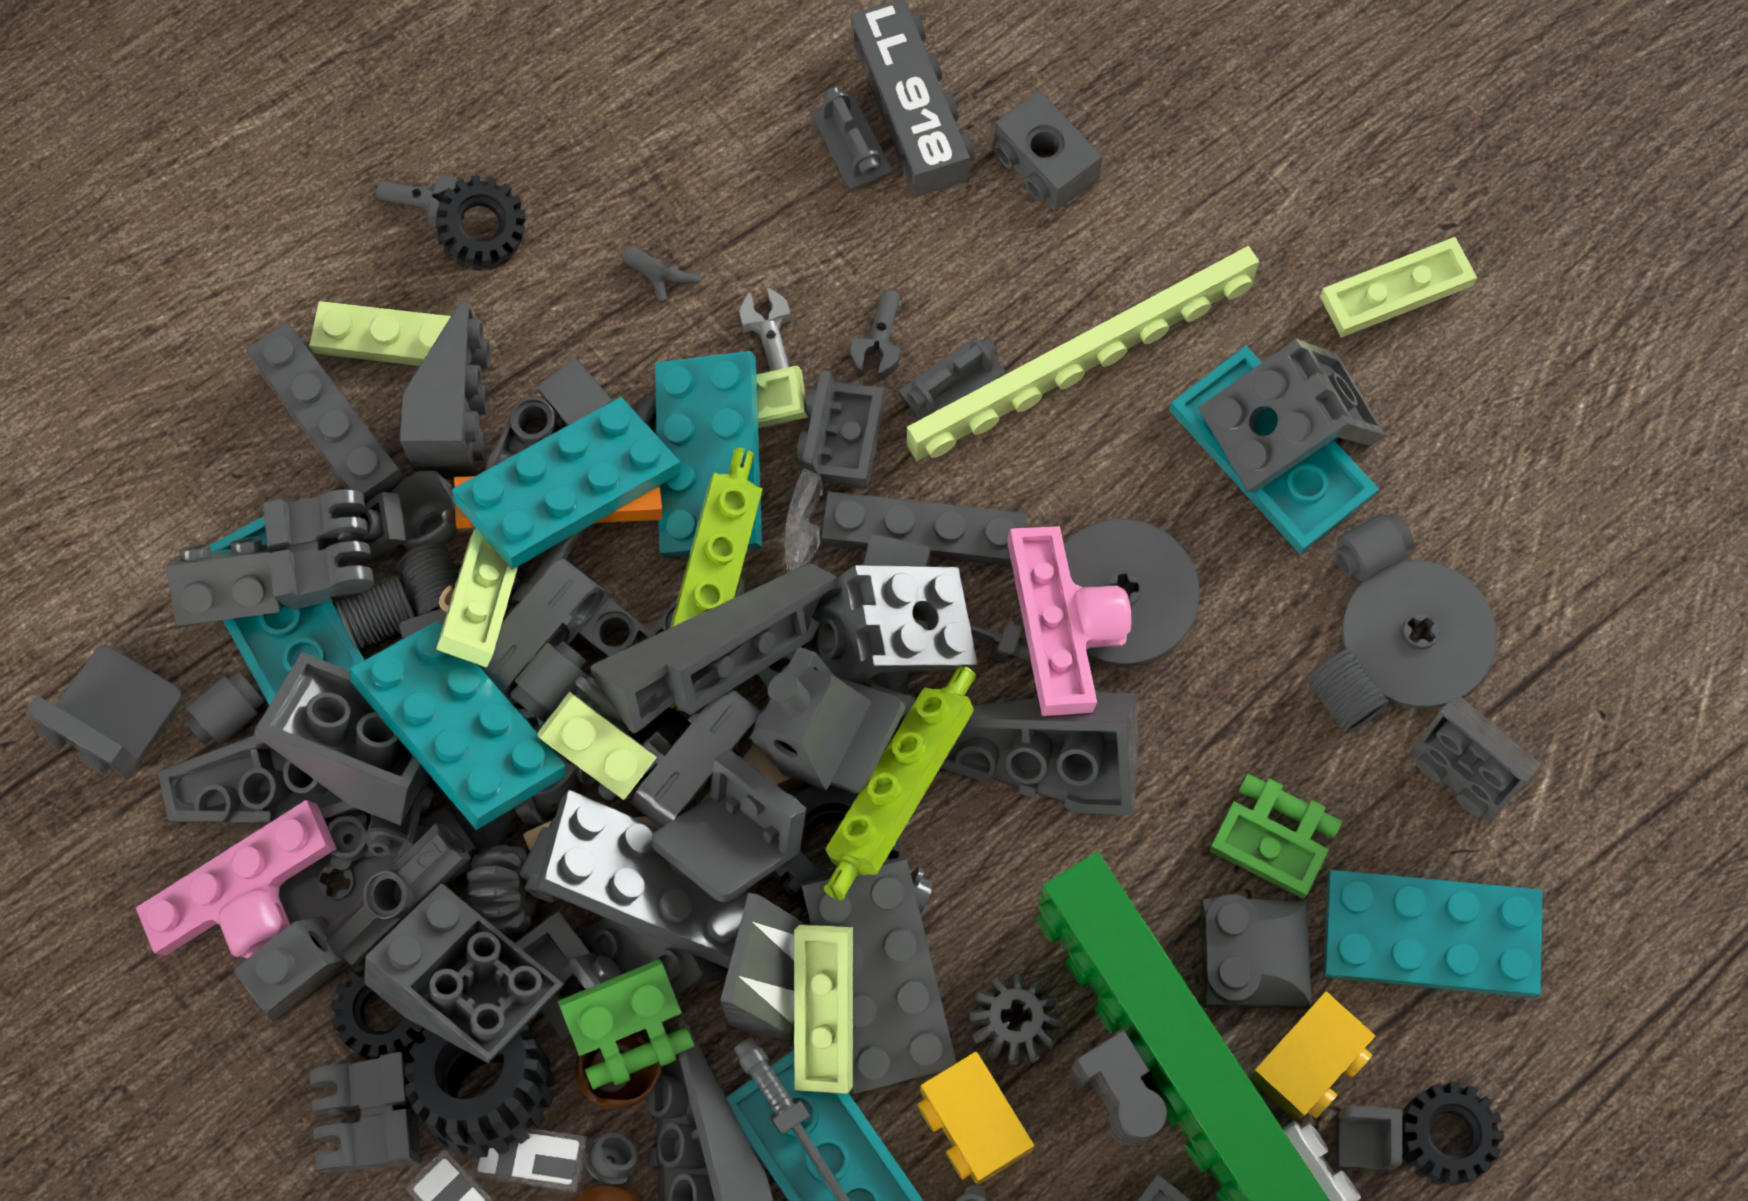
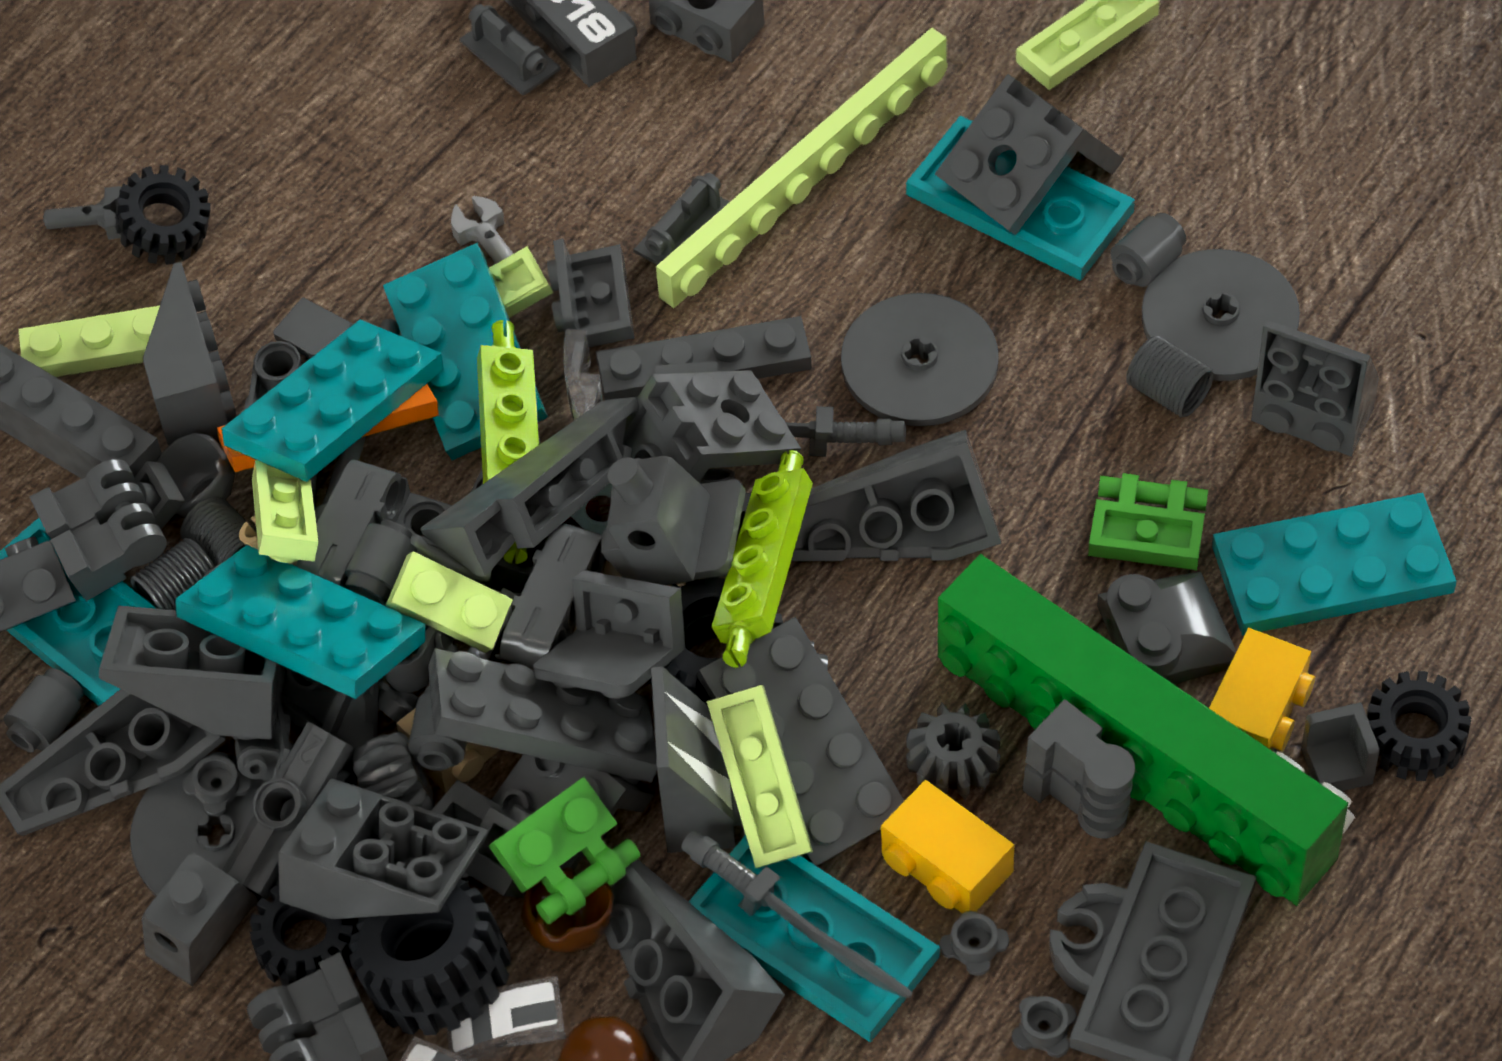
camera: 15 degrees left, 15 degrees down
(239, 887) = (116, 857): bright pink plate -> none
(611, 1159) = (589, 995): dark grey plate -> none
(657, 271) = (356, 213): dark grey bar -> none
(879, 338) = (598, 212): dark grey bar -> none
(1063, 620) = (872, 385): bright pink plate -> none

